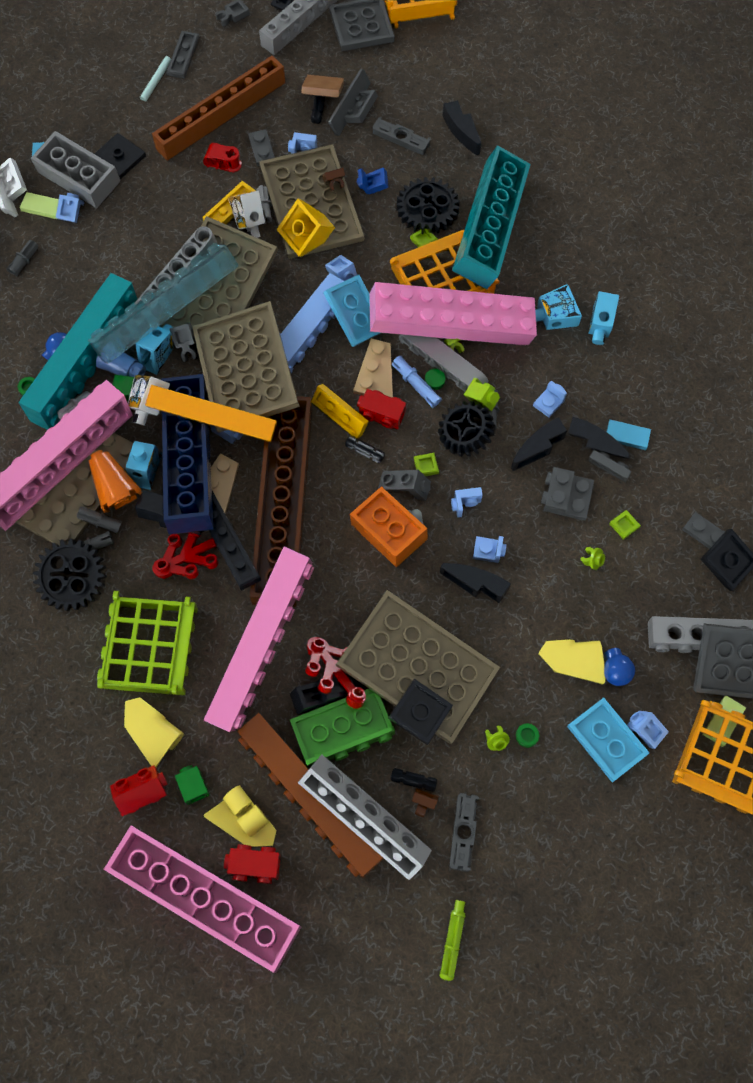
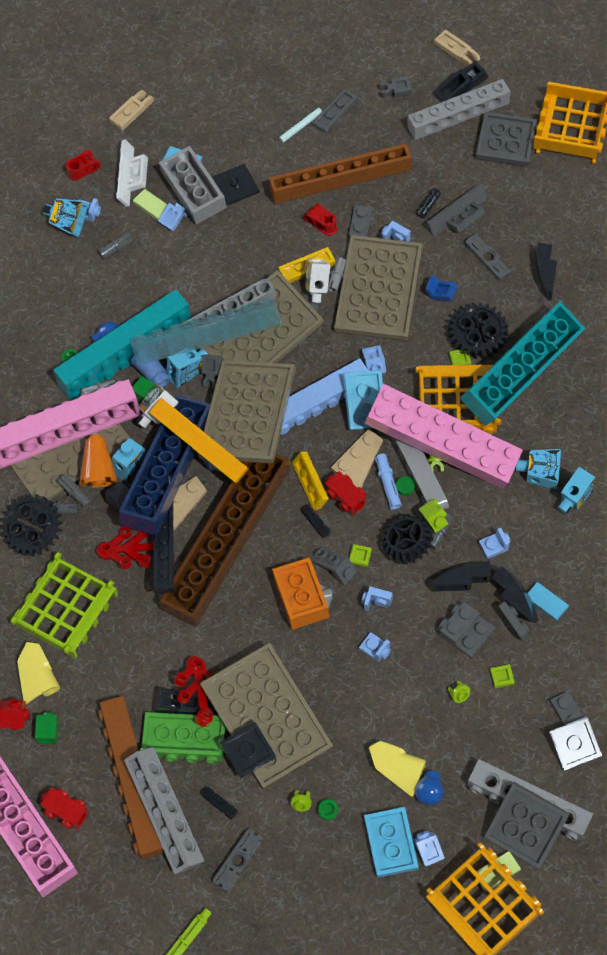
camera: 30 degrees right, 5 degrees down
(242, 819) = (73, 772): light yellow panel -> none
(259, 640) = (148, 638): bright pink brick -> none
(305, 228) = (358, 311): yellow slope -> none
(322, 86) = (440, 186): medium nougat tile -> none
(334, 176) = (406, 274): reddish brown tile -> none
(424, 800) = (219, 822): reddish brown tile -> none
(476, 580) = (350, 668): black slope -> none

